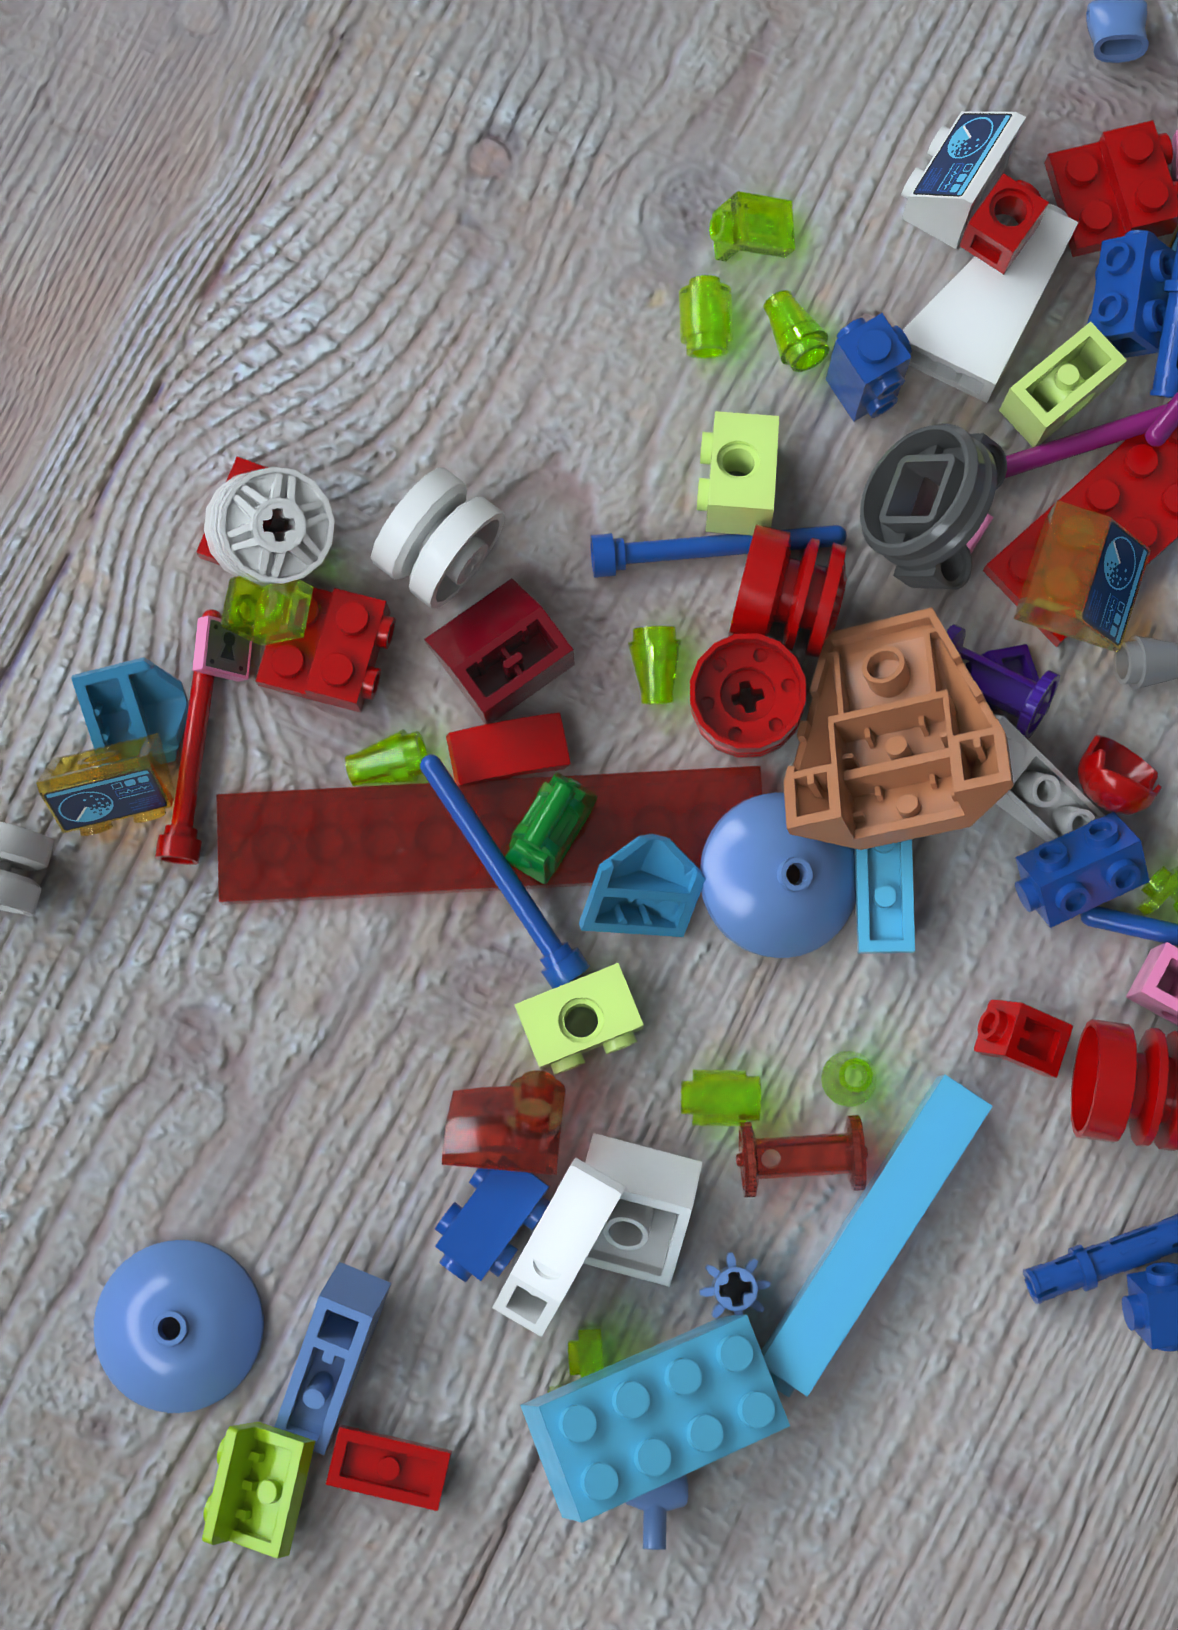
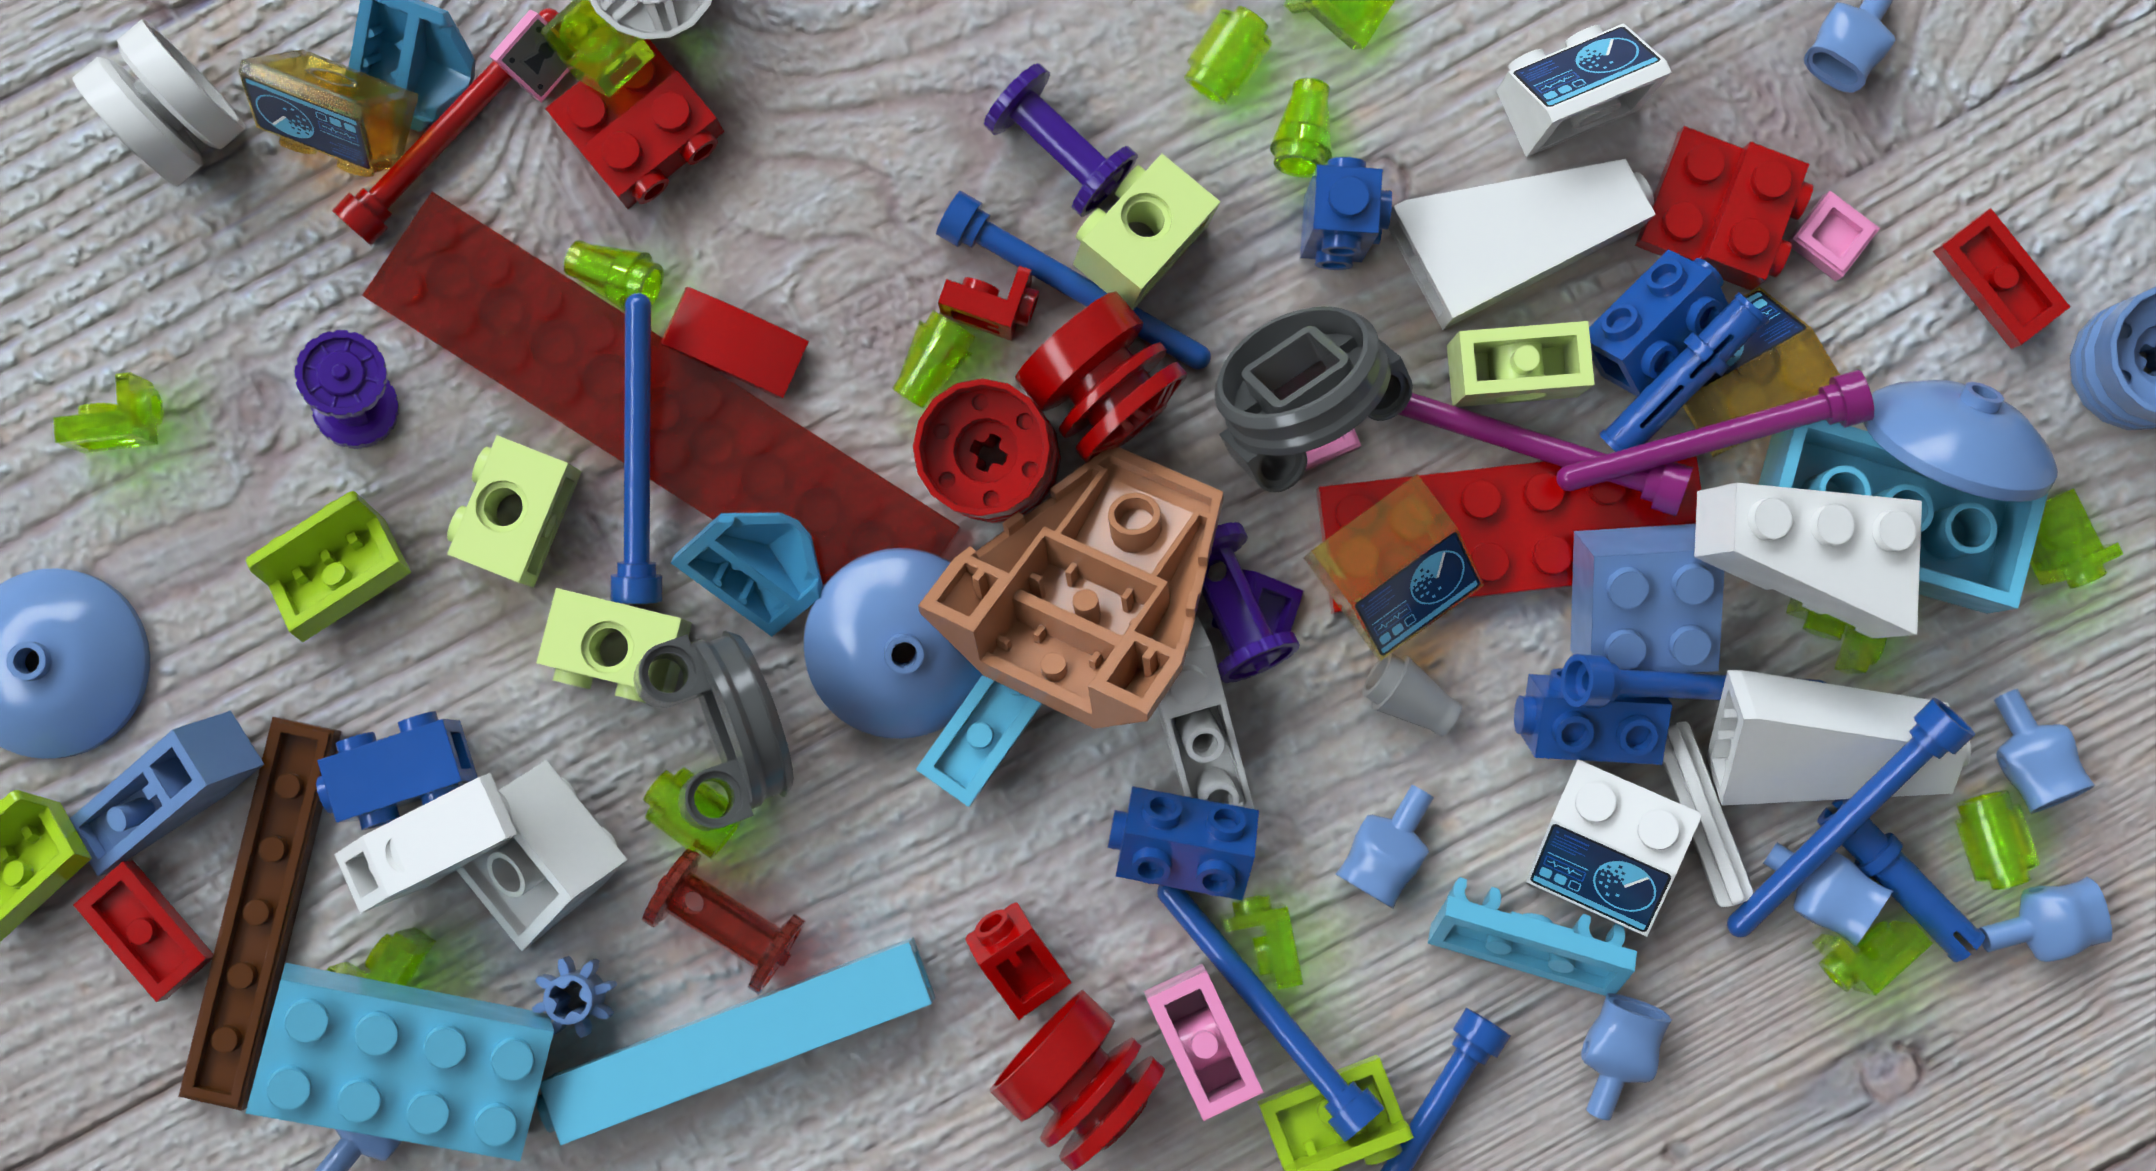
camera: 30 degrees right, 5 degrees up
(101, 1125) = (114, 426): none -> clear neon green bracket
(266, 968) = (347, 389): none -> dark purple hose
(335, 1107) = (329, 564): none -> lime bracket
(431, 942) = (545, 492): none -> yellowish green brick
(437, 537) = (804, 89): white wheel -> none
(462, 1397) = (258, 916): none -> reddish brown tile
(501, 650) = (790, 243): dark red slope -> none
(507, 1125) = (465, 698): clear red slope -> none
(550, 827) = (713, 443): green piece -> none
(634, 452) = (1023, 105): none -> dark purple hose
(666, 605) = (979, 307): none -> red bracket
(713, 1003) = (738, 717): none -> dark grey piece
(835, 1084) = (842, 873): clear neon green cone -> none
(998, 243) = (1557, 183): red brick -> none
(1117, 777) = (1289, 779): red hair -> none

